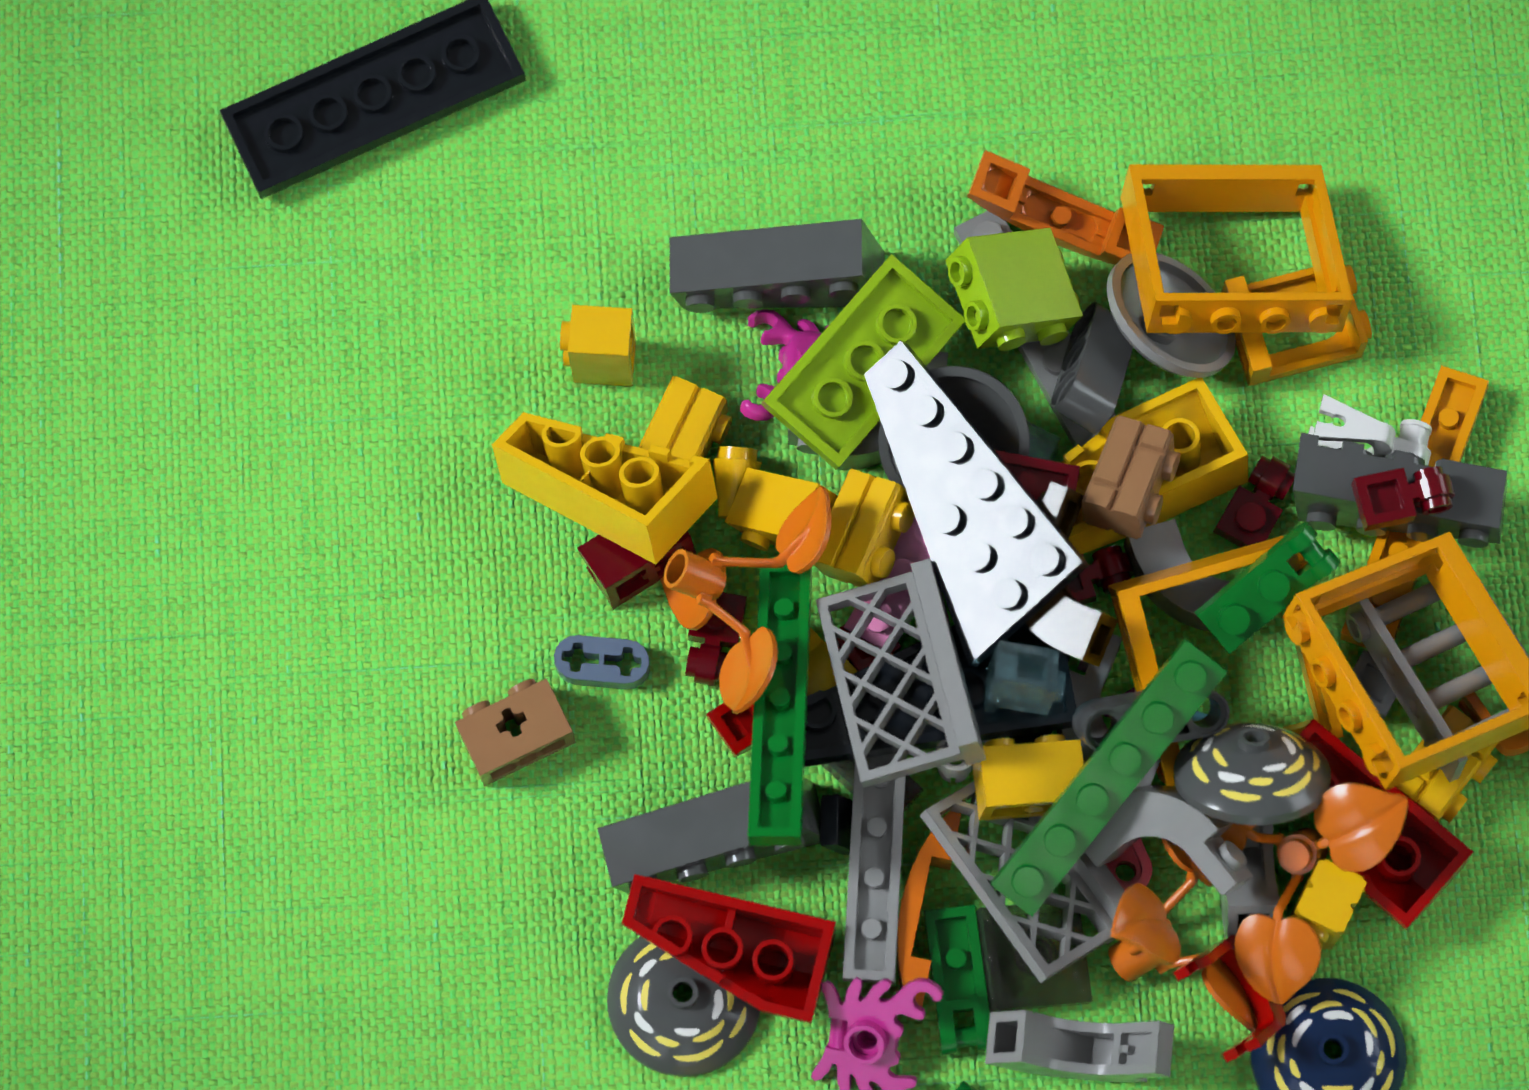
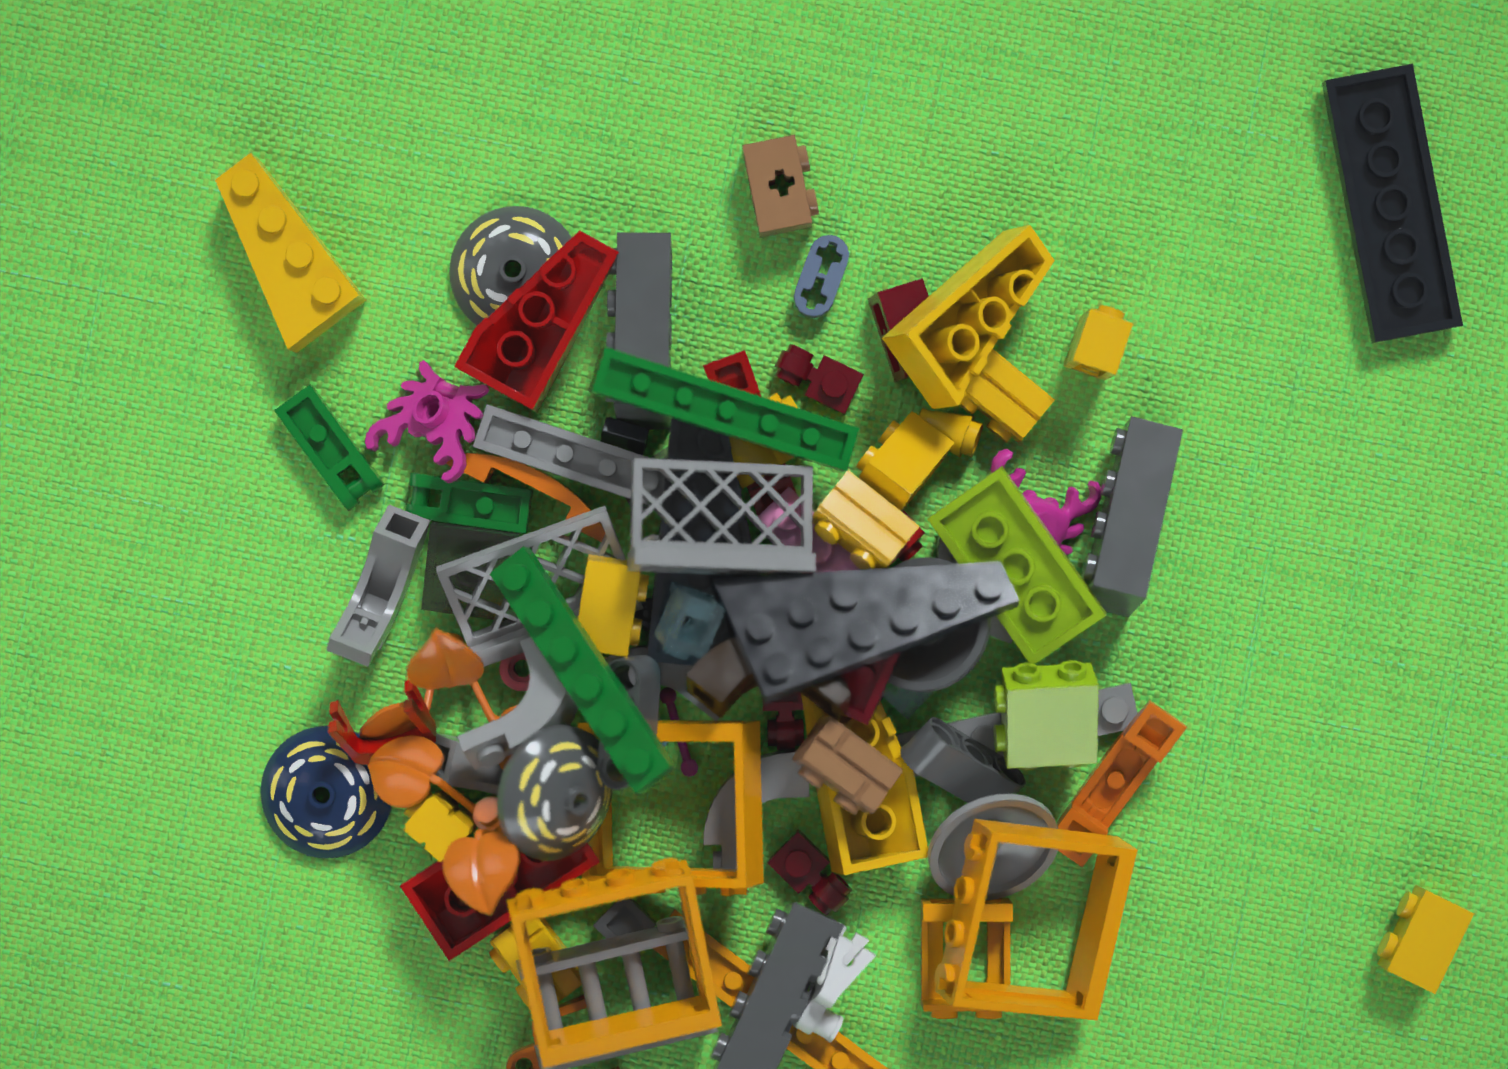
camera: 105 degrees right, 15 degrees up
(698, 580) = (852, 368): orange plant -> none
(1266, 587) = (712, 853): green plate -> none
(1389, 500) = (761, 982): dark red plate -> none

